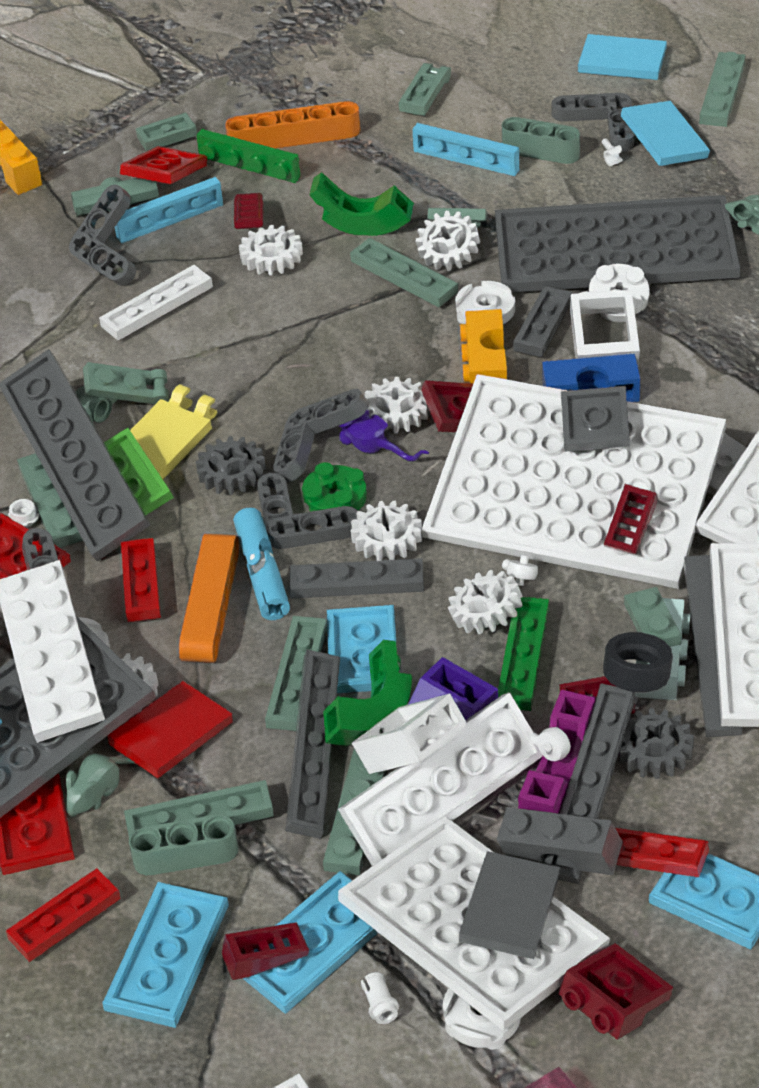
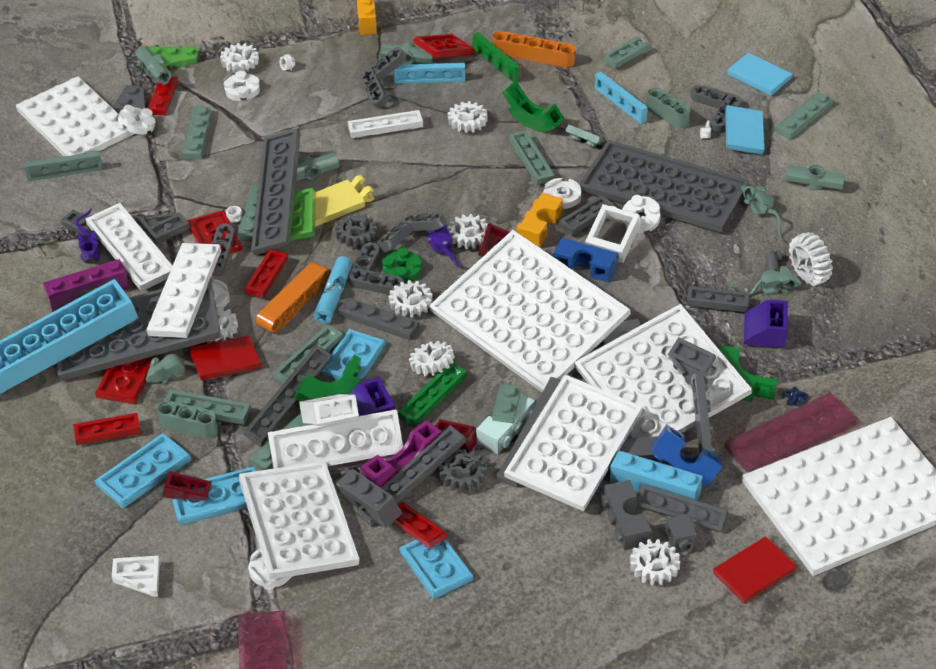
camera: 25 degrees right, 0 degrees up
(125, 383) = (332, 163): sand green plate -> none
(166, 131) = (462, 26): sand green plate -> none
(248, 211) = (470, 90): dark red slope -> none
(382, 1006) = (224, 542): white pin -> none
(448, 240) = (567, 148): white gear -> none
(509, 905) = (318, 518): dark grey tile -> none
(521, 569) = (466, 349): white piece -> none
(552, 743) = (403, 446): white piece -> none
(595, 418) = (555, 279): dark grey plate -> none
(613, 990) = (341, 586): dark red plate -> none
(637, 676) = (473, 431): black tyre -> none
(639, 496) = (542, 350): dark red slope -> none

